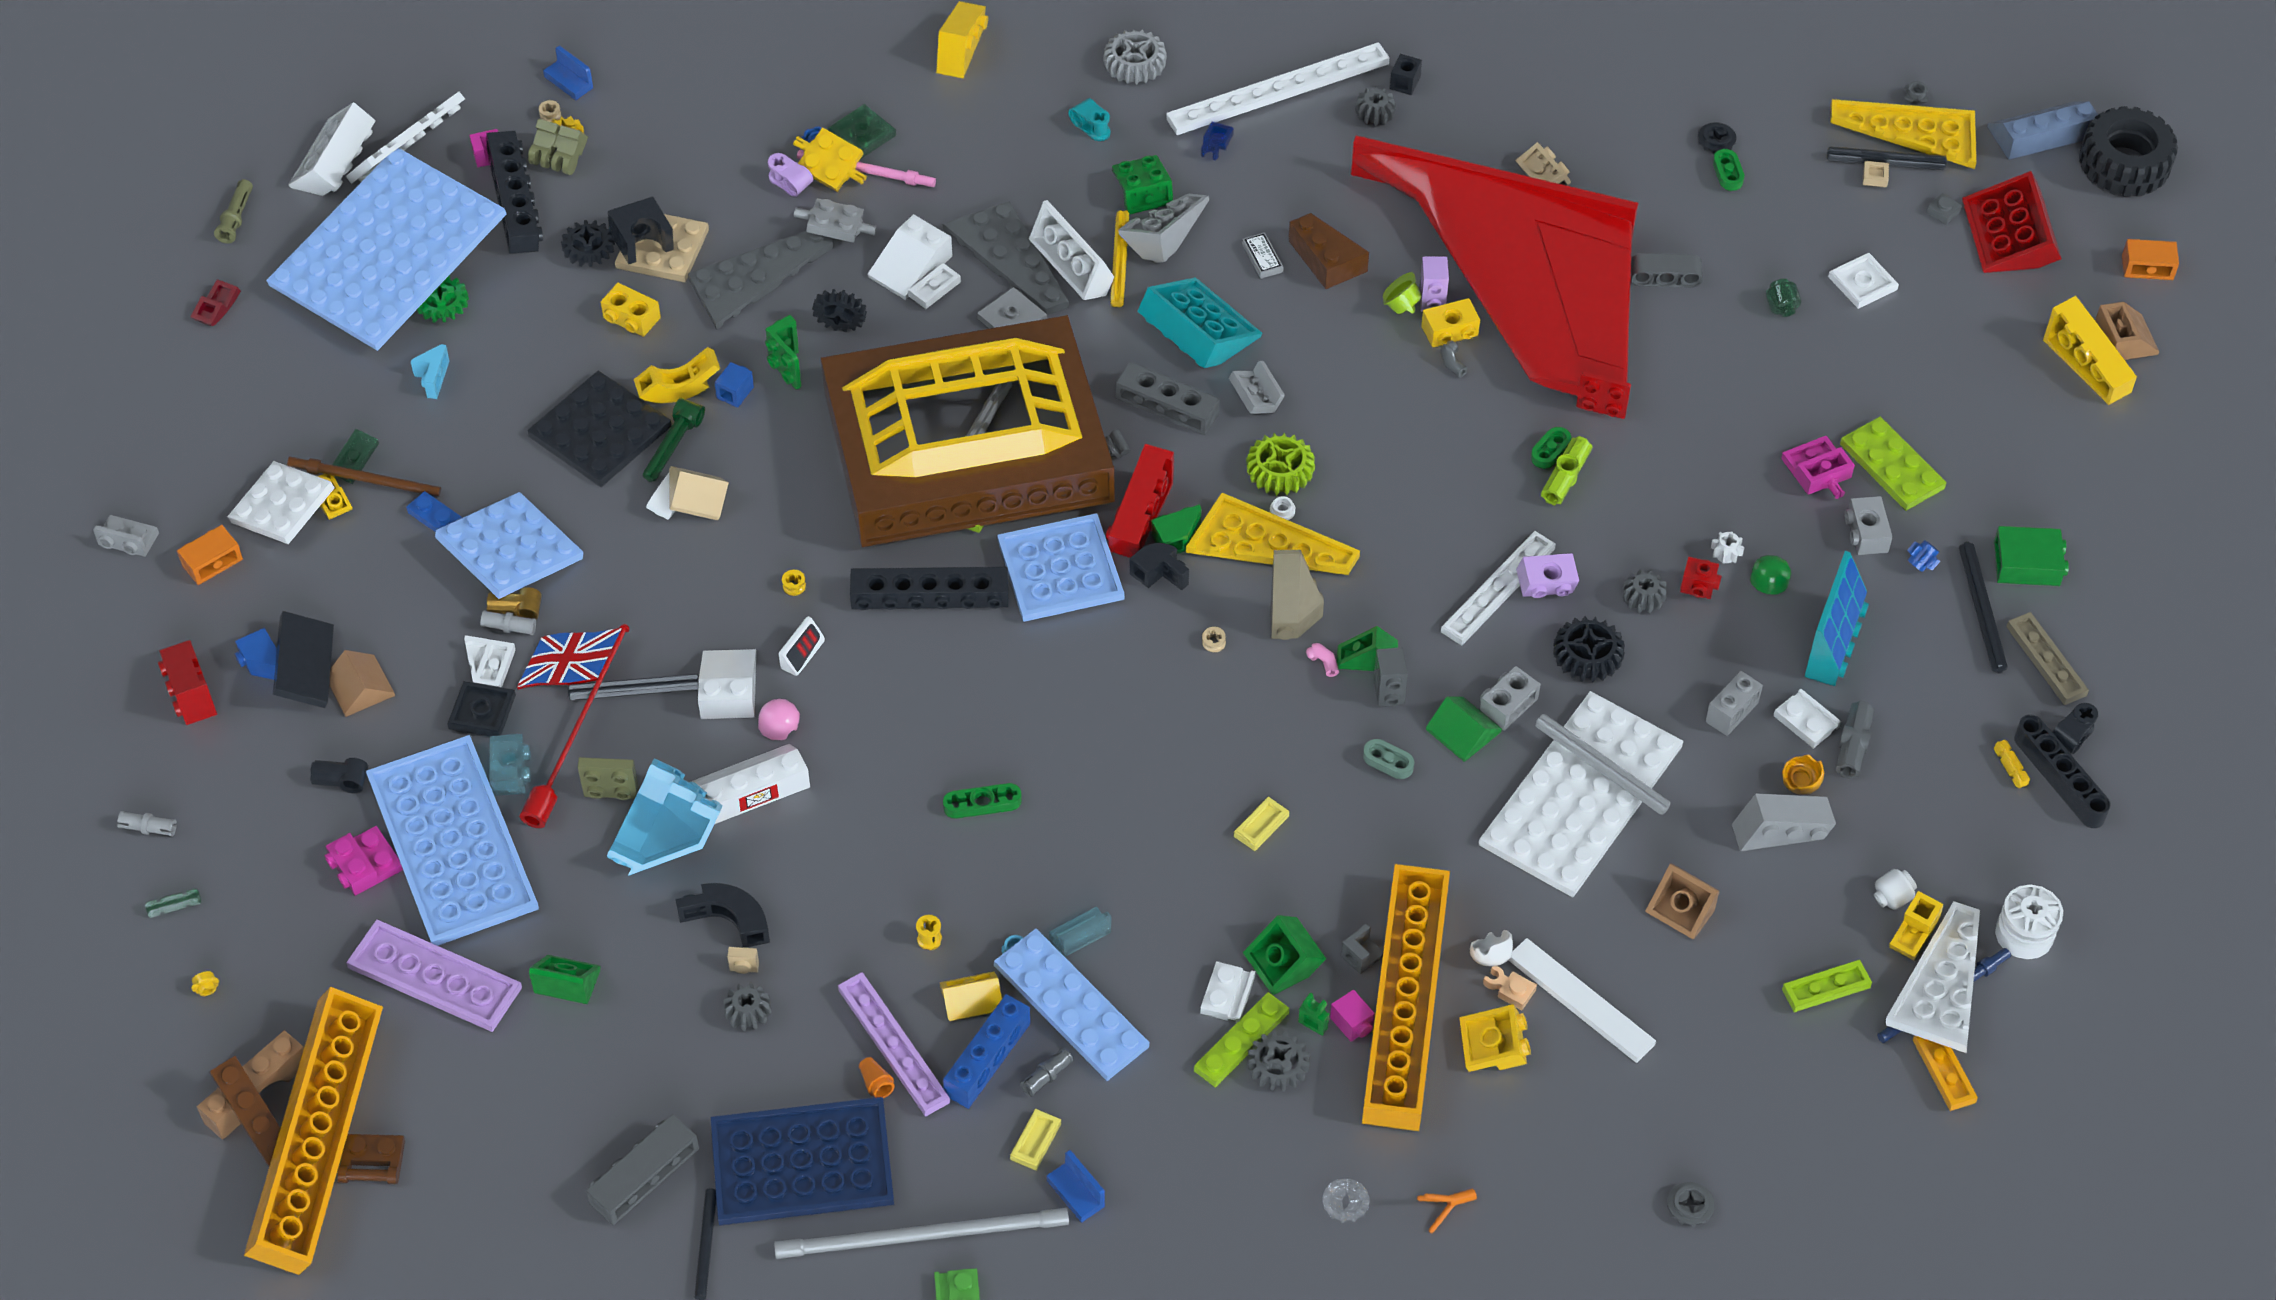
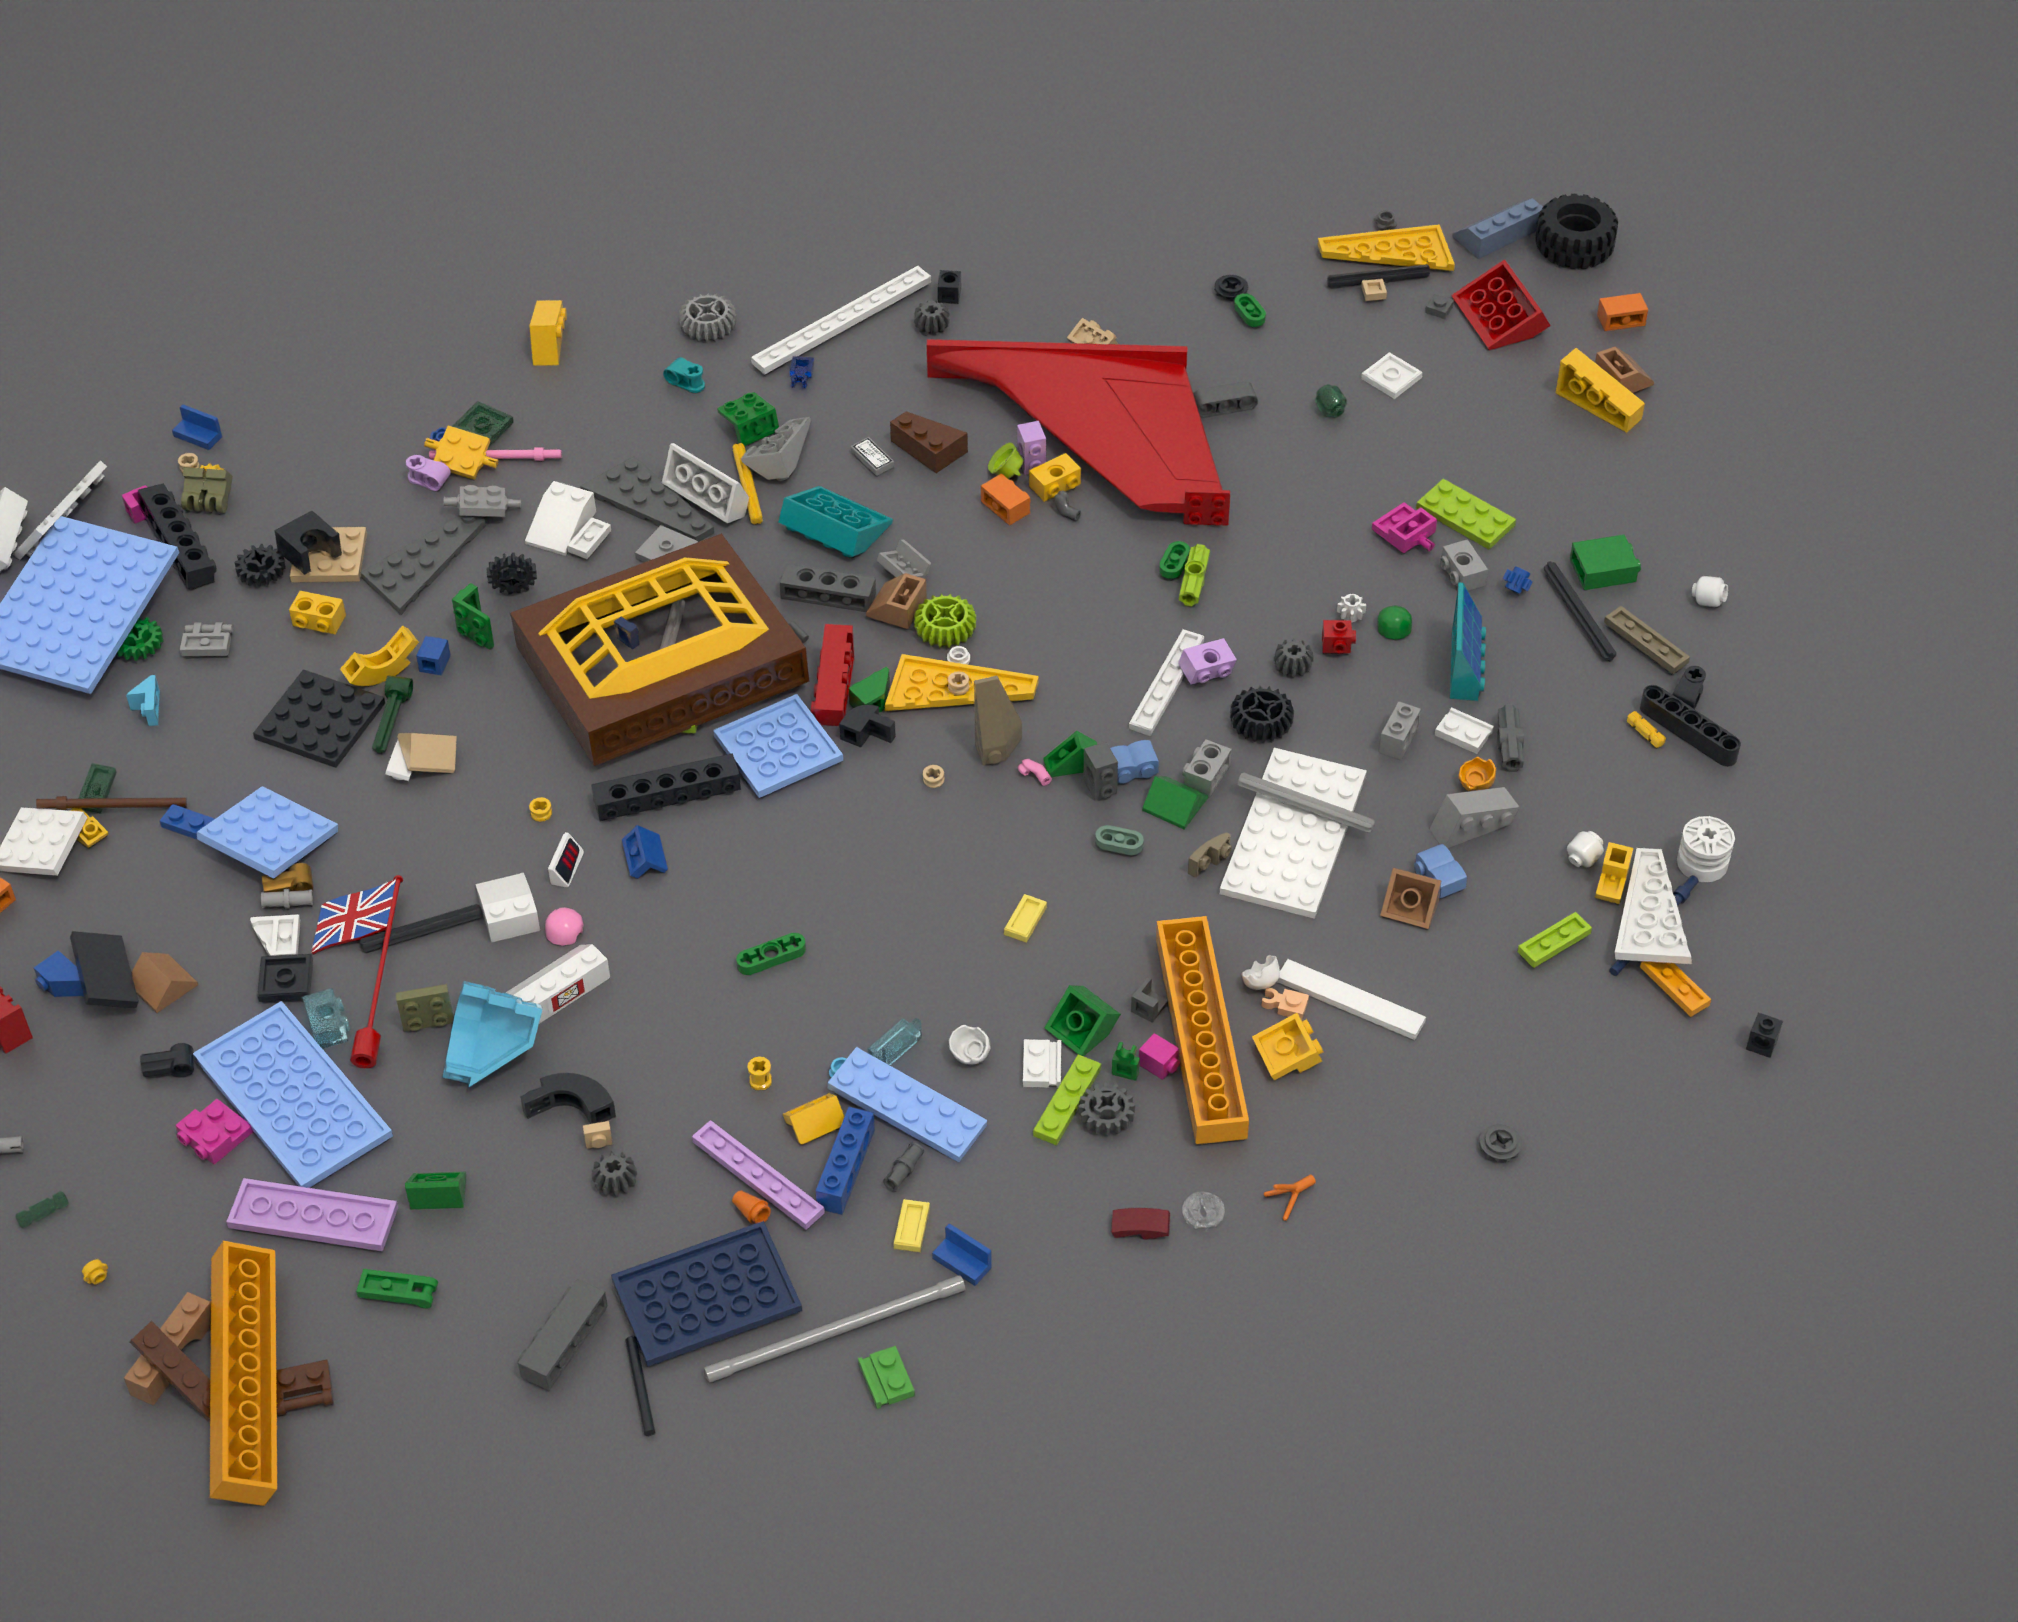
camera: 15 degrees left, 5 degrees down
(494, 1075) = (396, 1287): none -> green plate
(508, 319) = (206, 639): none -> light grey plate
(885, 655) = (643, 850): none -> blue panel
(927, 412) = (627, 632): none -> dark blue plate
(1155, 954) = (969, 1045): none -> white hair
(1237, 430) = (899, 600): none -> medium nougat slope
(1274, 533) = (958, 689): none -> tan bush
(1276, 1196) = (1144, 1221): none -> dark red slope
(1389, 337) = (1005, 499): none -> orange brick
(1431, 672) = (1135, 761): none -> medium blue brick
(1483, 795) = (1210, 852): none -> dark tan slope
(1727, 874) = (1440, 865): none -> medium blue brick
(2023, 1153) = (1764, 1035): none -> black brick
(2138, 617) = (1710, 591): none -> white head

